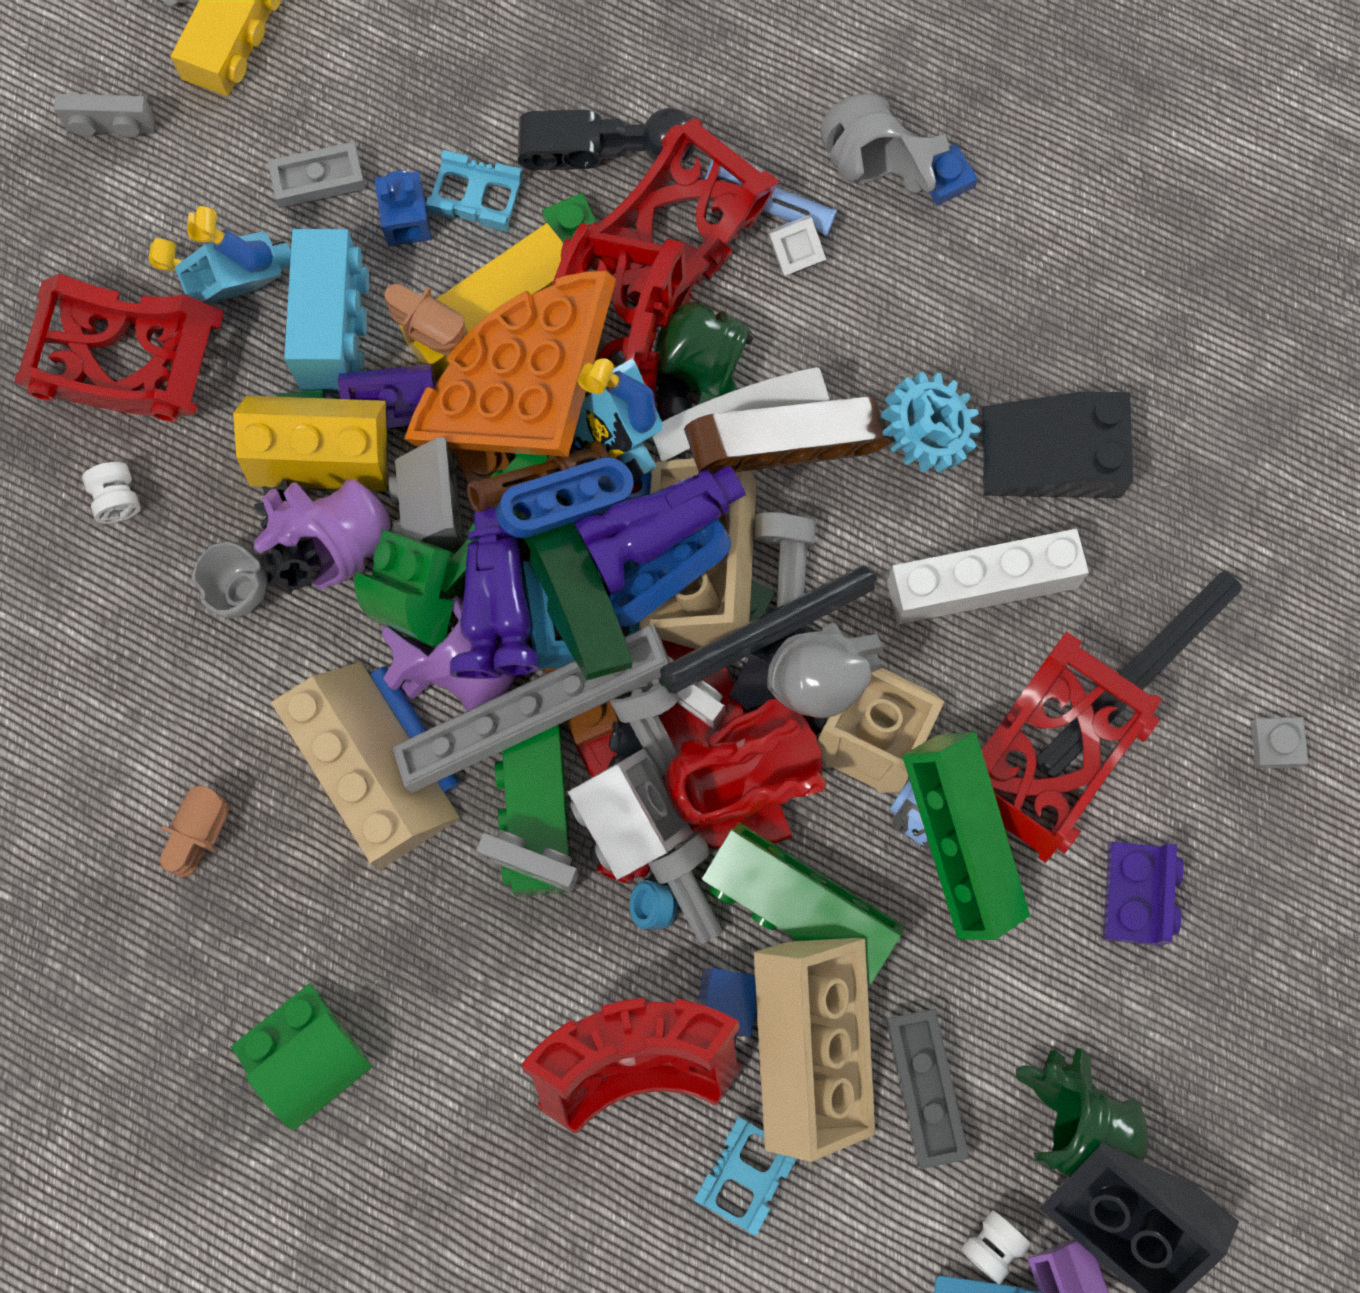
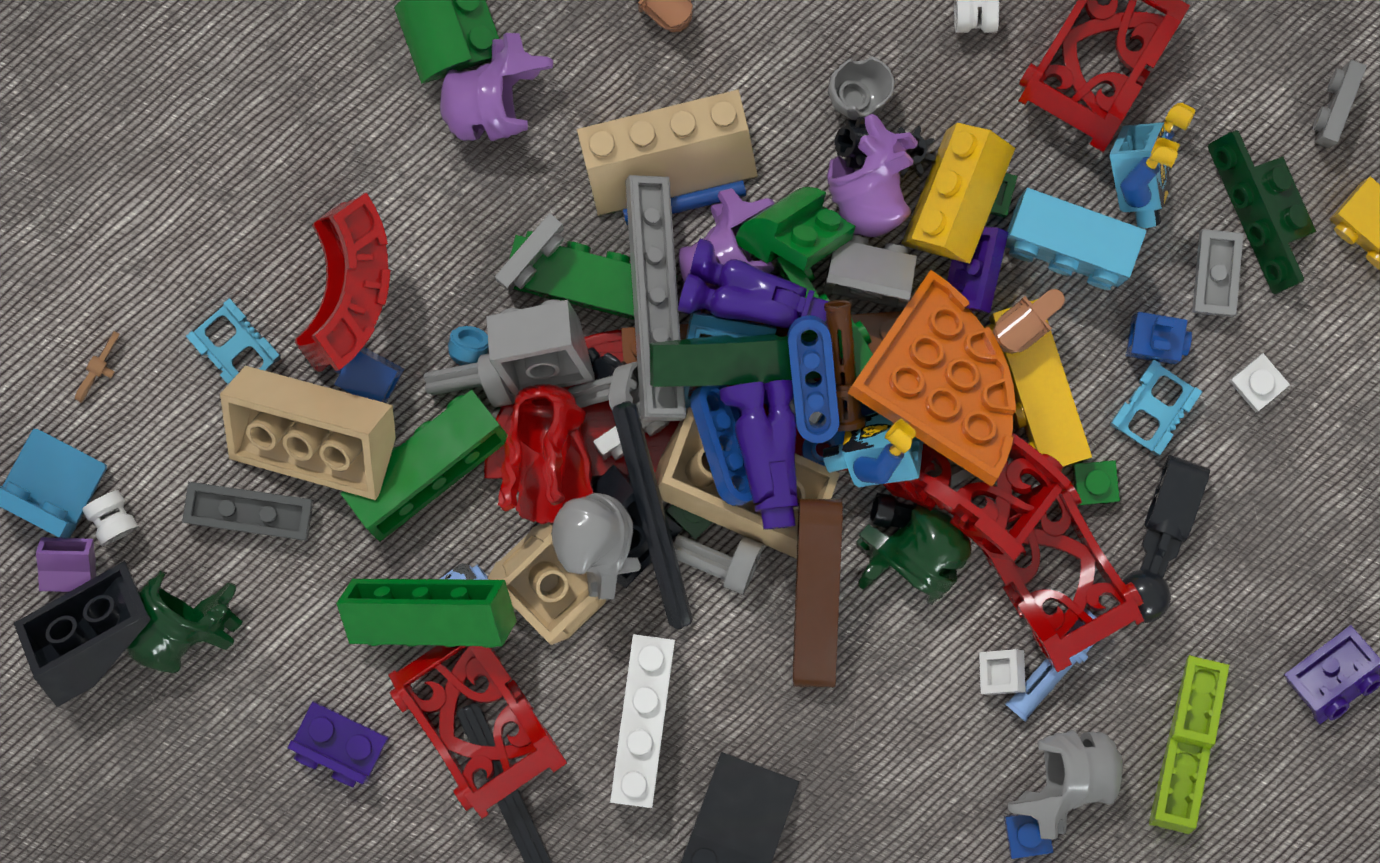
camera: 110 degrees right, 10 degrees up
(237, 150) = (1266, 207): none -> dark green bracket
(366, 988) = (484, 96): none -> medium lavender piece
(415, 105) = (1259, 382): none -> white plate
(784, 390) = (862, 561): white sticker -> none
(788, 58) = (1189, 745): none -> lime slope
(930, 422) = (783, 739): medium azure gear -> none

